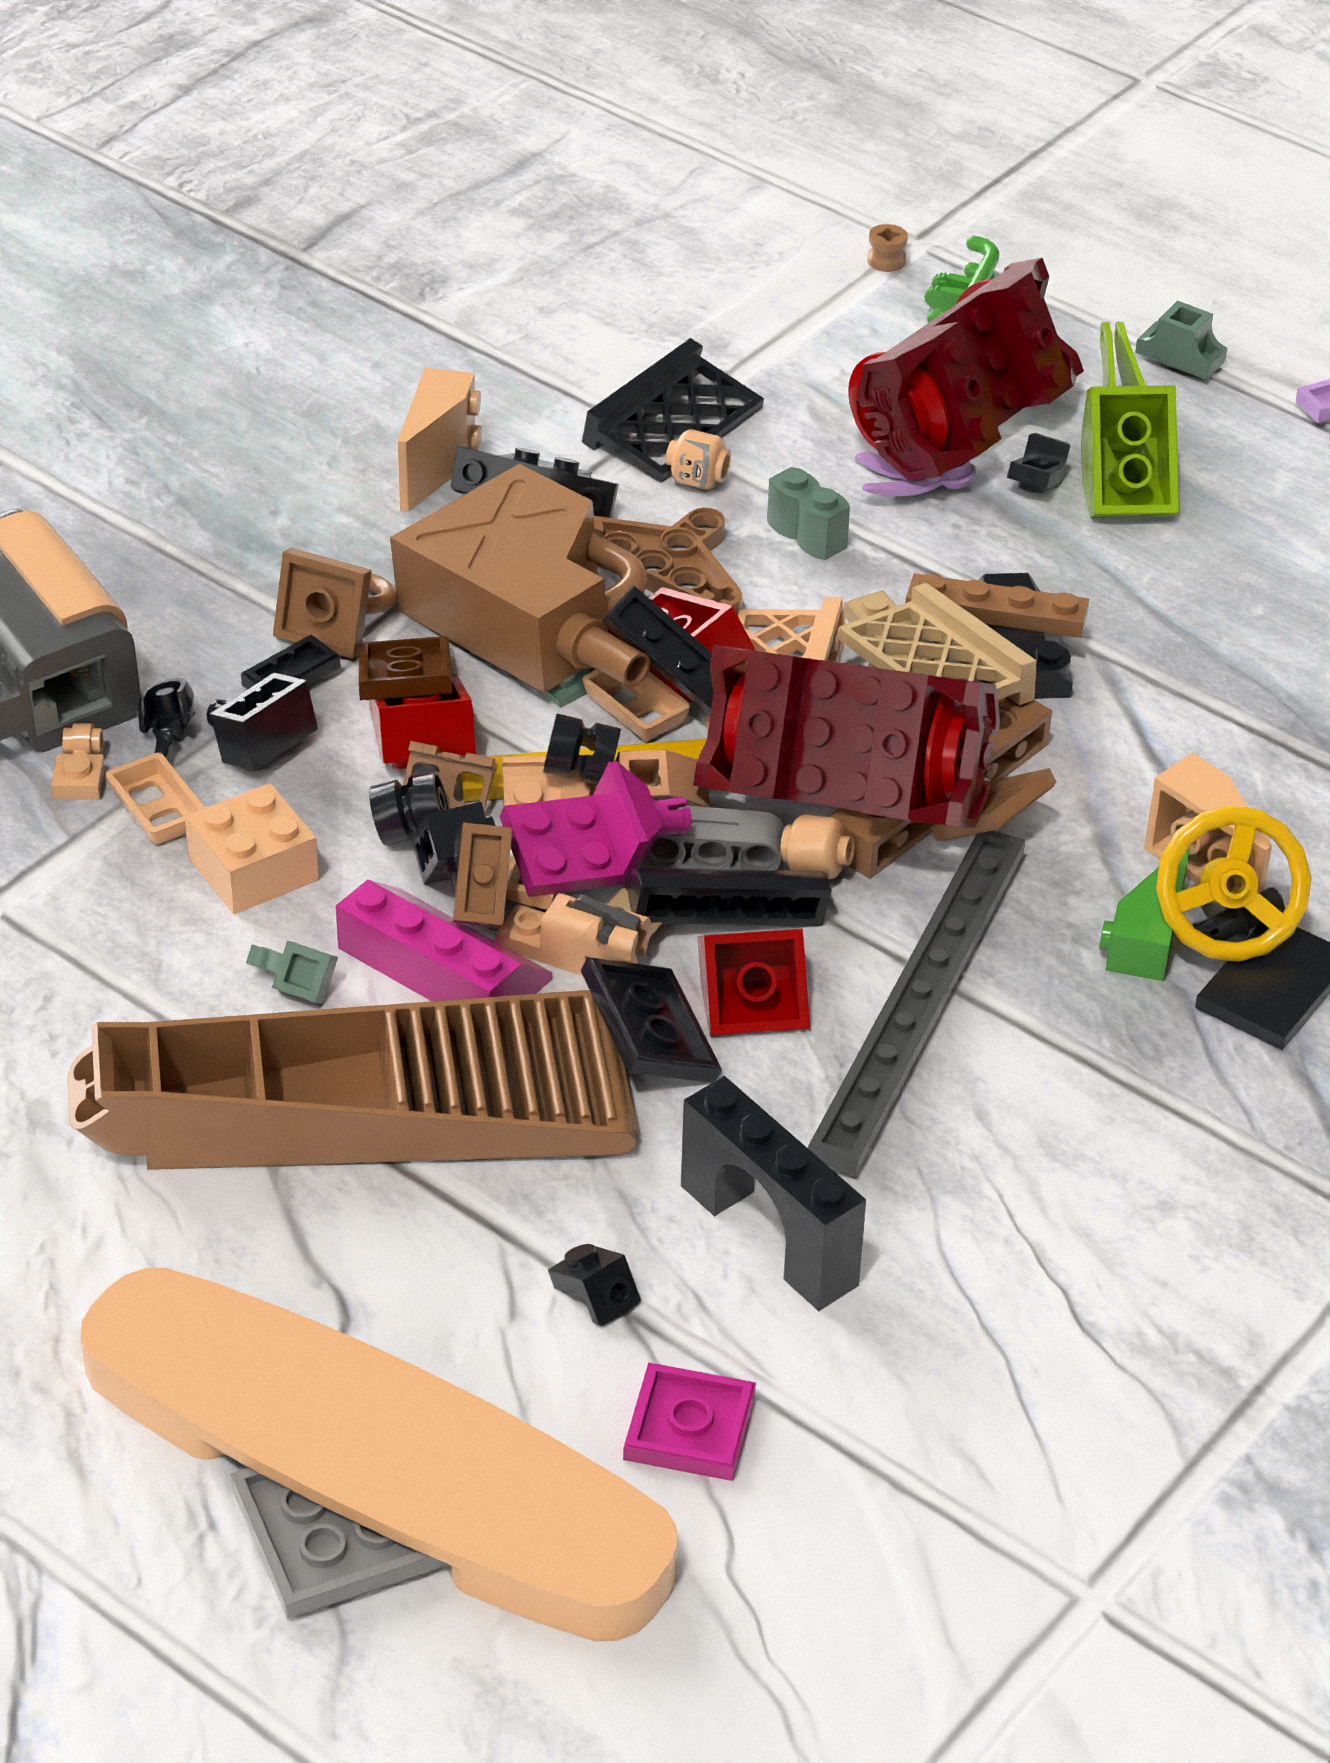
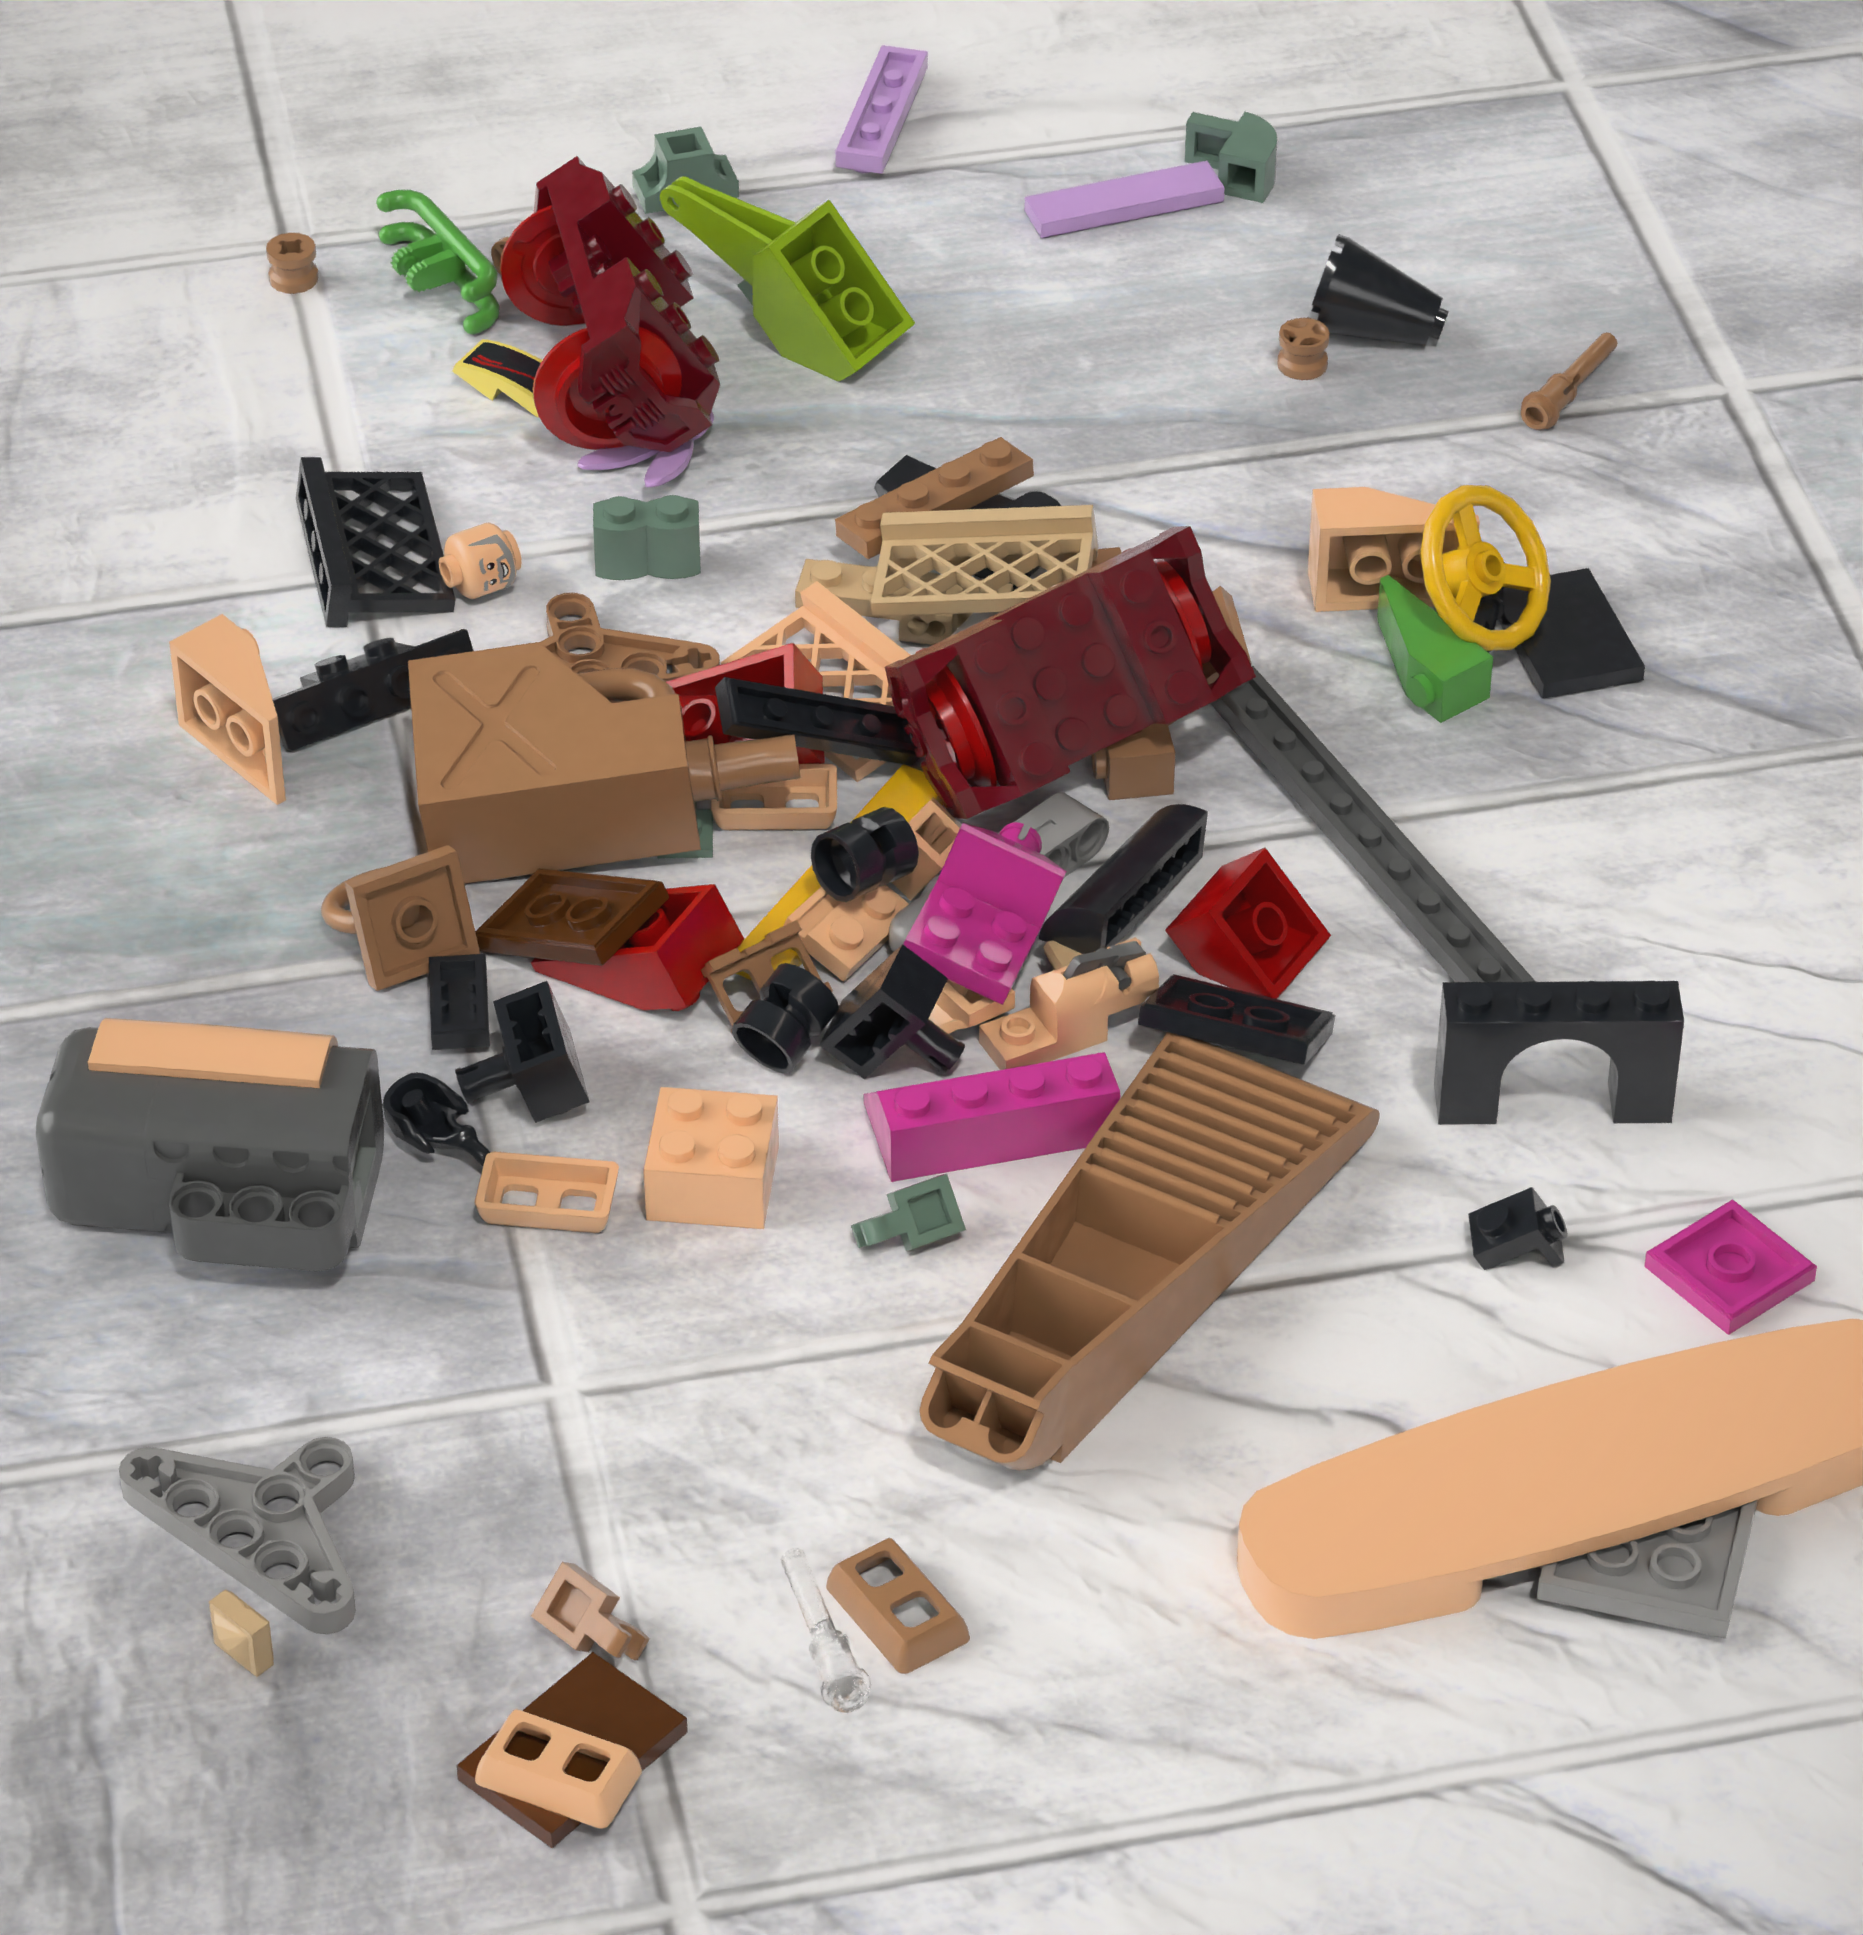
camera: 50 degrees left, 0 degrees up
(81, 767) = (432, 1233): light nougat plate -> none
(482, 875) = (970, 1008): medium nougat panel -> none
(817, 845) = (1126, 791): light nougat head -> none
(1041, 464) = (747, 361): black bracket -> none

